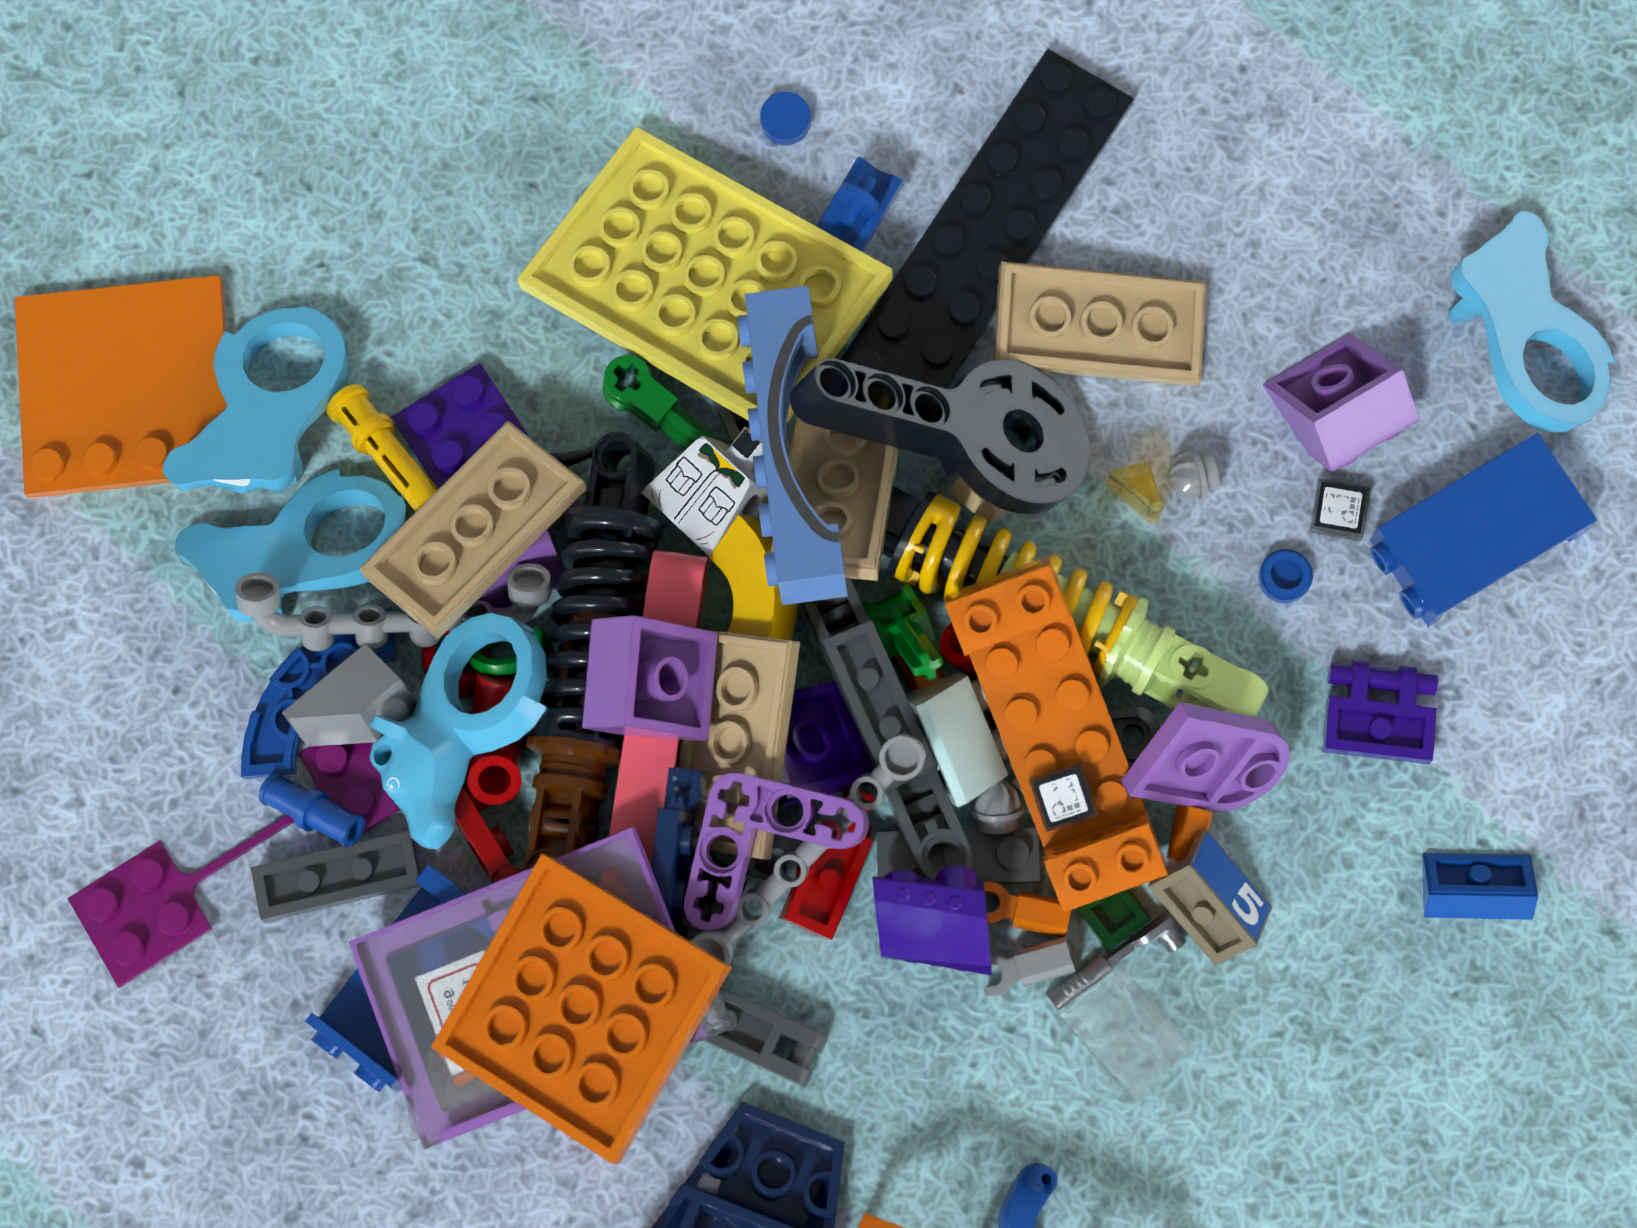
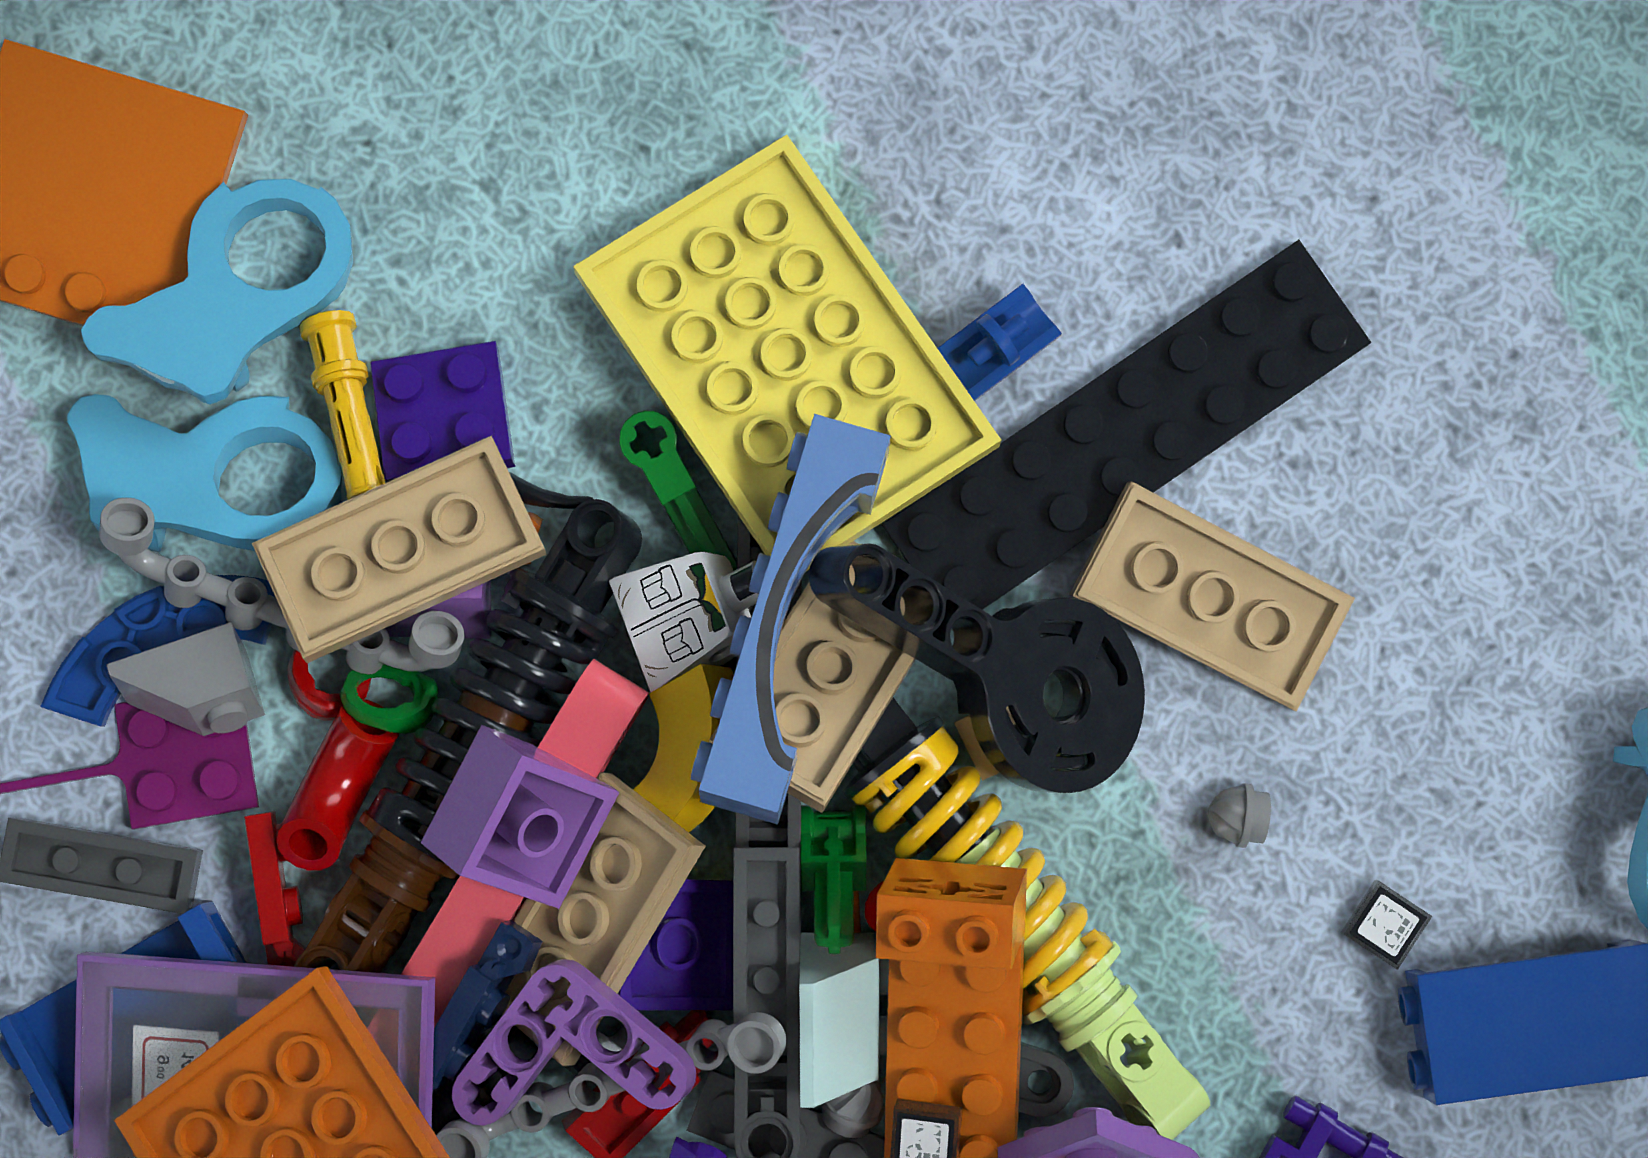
camera: 20 degrees right, 10 degrees up
(311, 809) = (100, 782): blue pin -> none
(430, 752) = (255, 776): medium azure animal -> none
(785, 118) = (963, 194): blue tile -> none
(1137, 489) = (1171, 810): clear yellow slope -> none
(1285, 576) = (1291, 974): blue tile -> none
(1343, 401) = (1446, 803): medium lavender slope -> none

